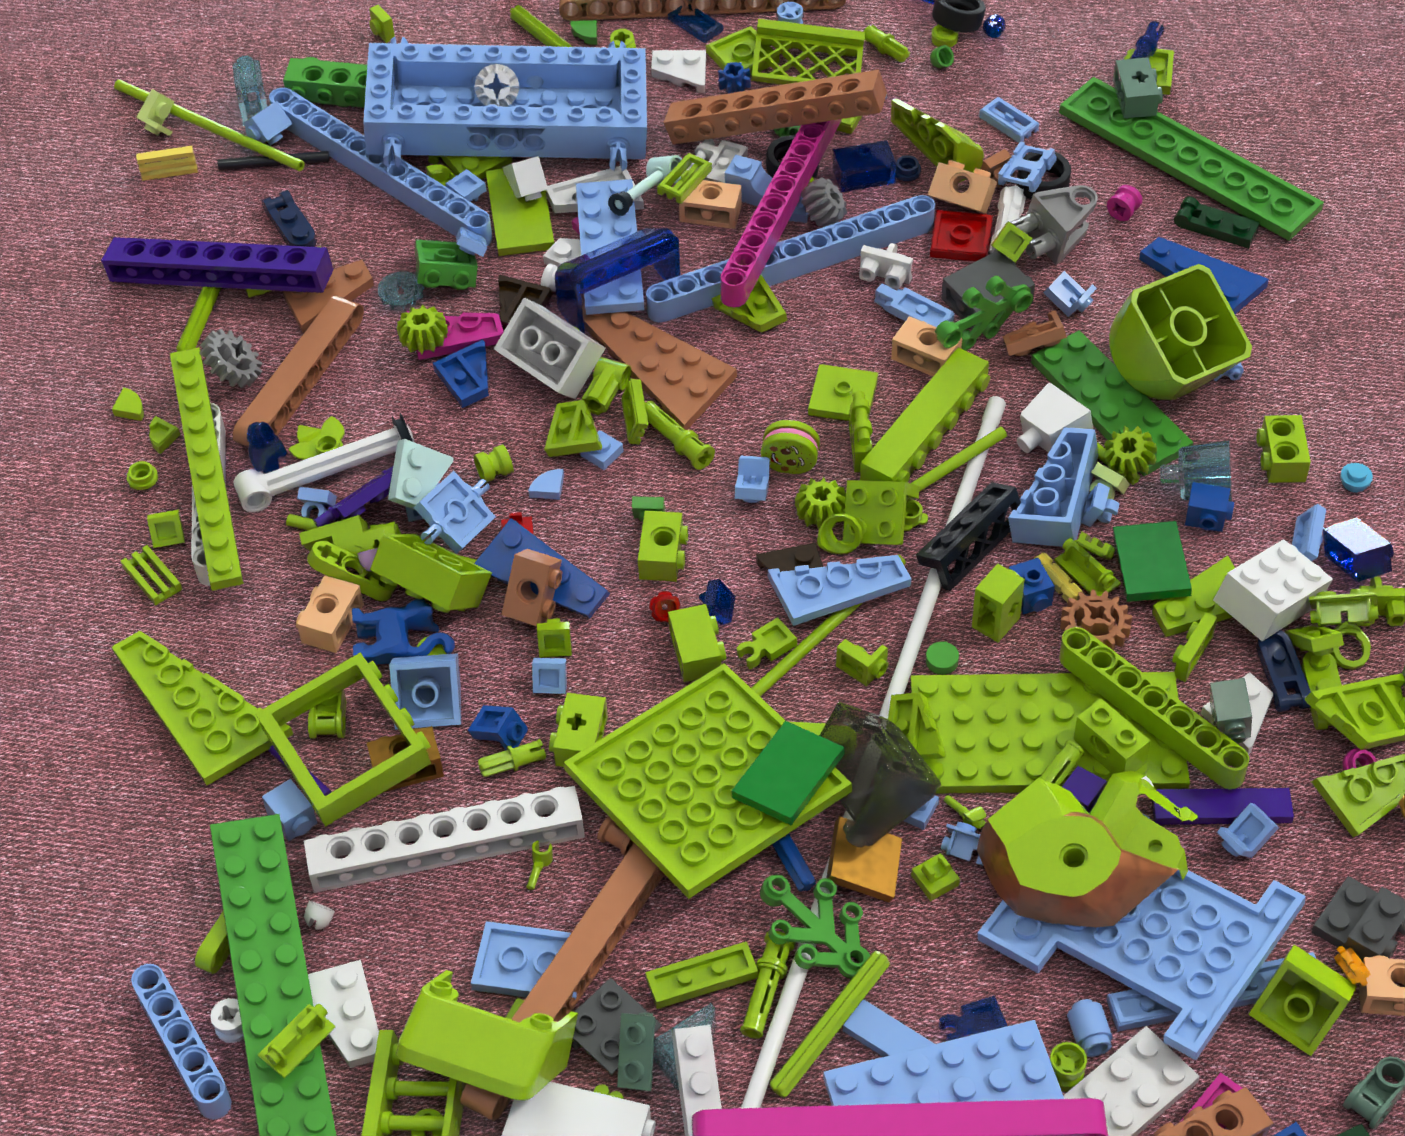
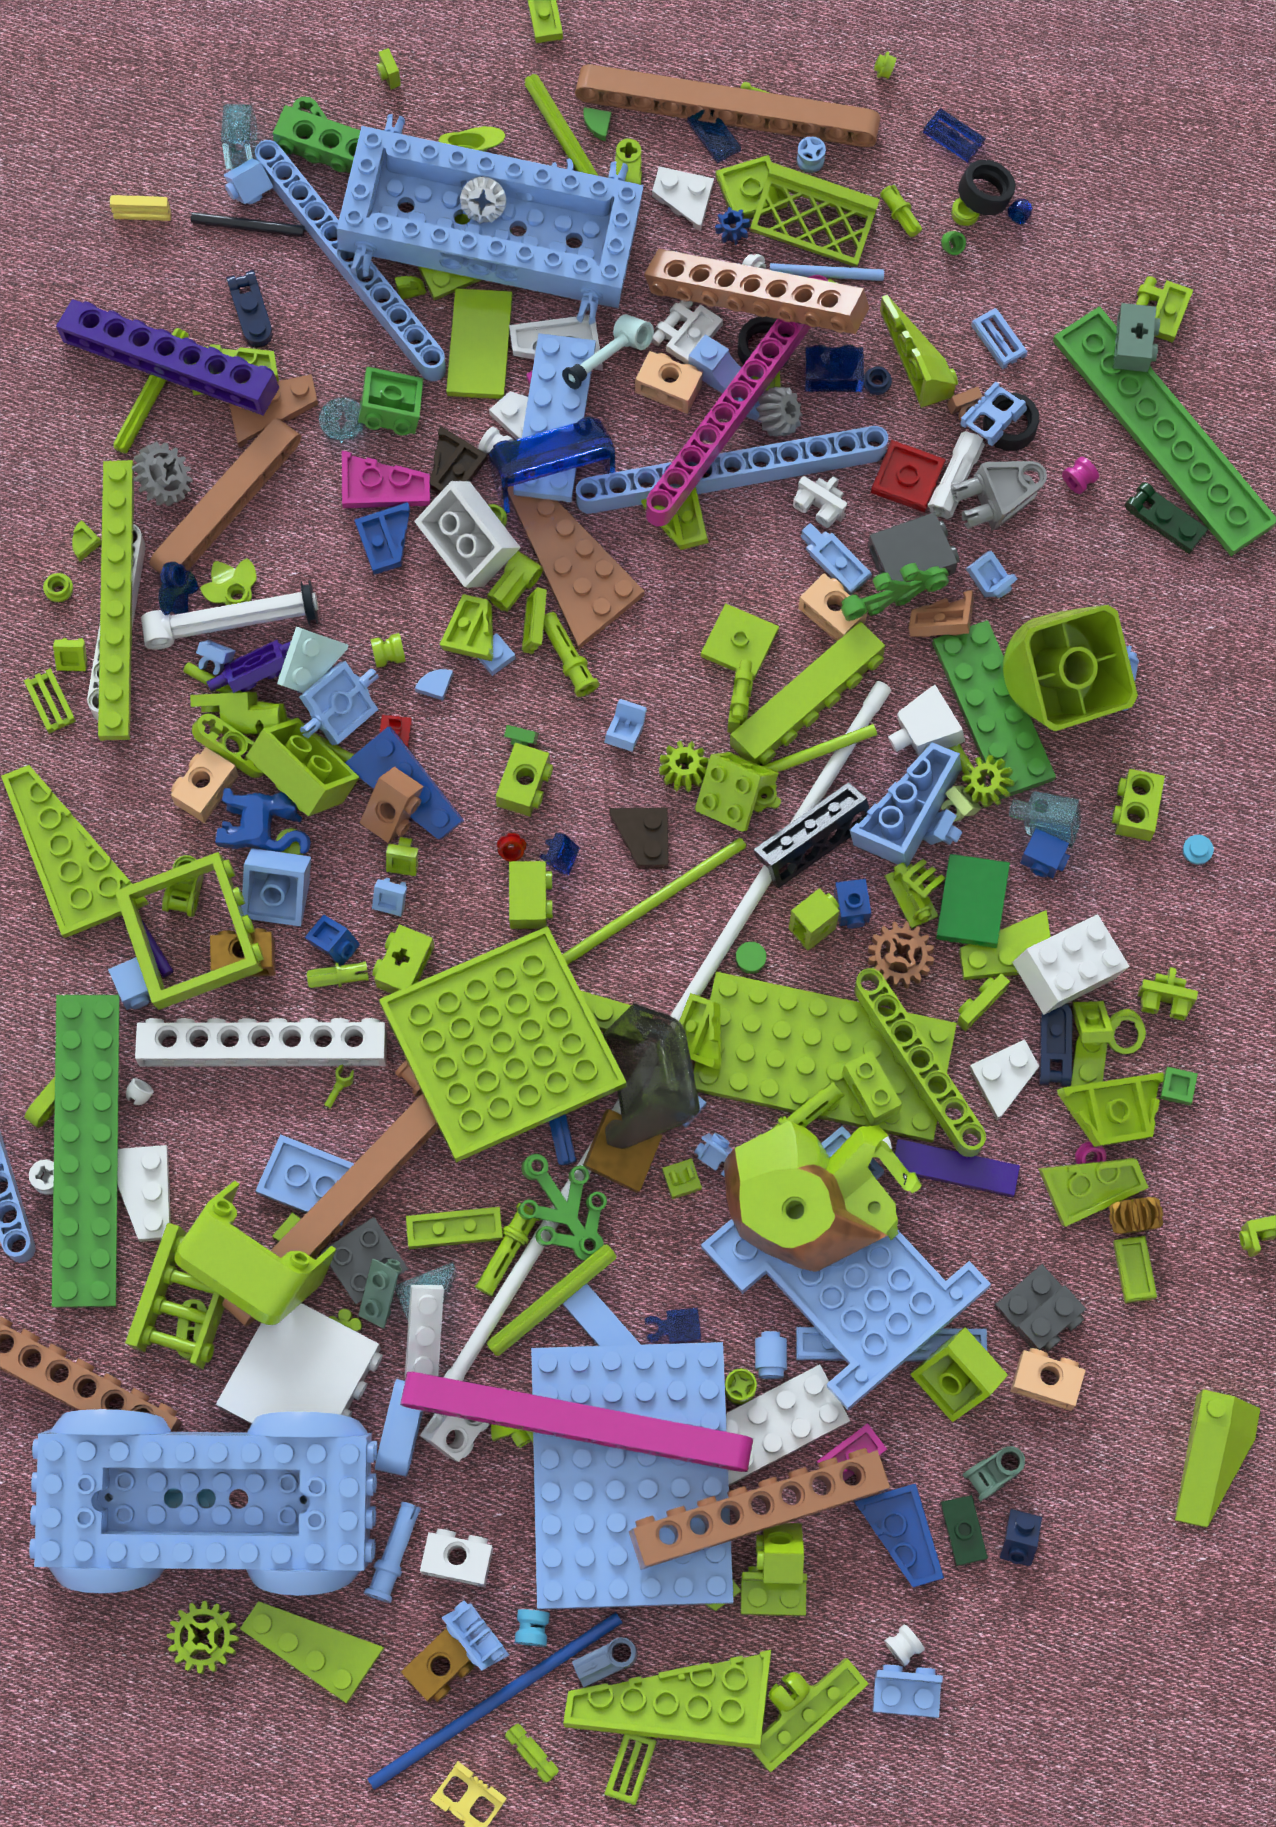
camera: 10 degrees right, 20 degrees up
(128, 405) = (58, 500): lime tile -> none
(155, 111) = (137, 141): yellowish green bracket -> none
(217, 128) = (211, 186): lime piece -> none
(297, 1040) = (96, 1217): lime hinge -> none
(366, 558) = (248, 737): lavender hinge -> none
(422, 329) = (350, 483): lime gear -> none
(467, 185) = (430, 309): light blue tile -> none
(471, 242) = (419, 386): light blue plate -> none
(526, 178) = (490, 313): white slope -> none
(689, 178) = (630, 369): lime tile -> none
(769, 641) = (598, 905): lime plate -> none
(788, 772) = (572, 1060): green tile -> none
(790, 446) = (669, 699): lime head -> none
(824, 590) = (662, 865): light blue wing -> none
(829, 543) = (681, 808): lime piece -> none
(859, 664) = (671, 945): lime bracket -> none
(945, 186) = (906, 421): light nougat brick -> none
(972, 817) = (731, 1130): lime hand -> none
(1011, 241) = (946, 510): lime tile -> none
(1059, 578) = (881, 897): light yellow axle -> none
(1085, 787) = (833, 1128): dark purple tile -> none
(1147, 44) = (1164, 281): clear blue pin -> none
(1231, 708) = (985, 1088): sand green brick -> none
(1236, 283) = (1135, 583): blue wing -> none
(1248, 832) = (966, 1202): light blue bracket -> none
(1308, 531) = (1127, 907): light blue plate -> none
(1330, 607) = (1117, 995): lime hinge -> none
(1352, 966) = (1011, 1354): light orange axle -> none
(1357, 549) = (1166, 936): clear blue brick -> none

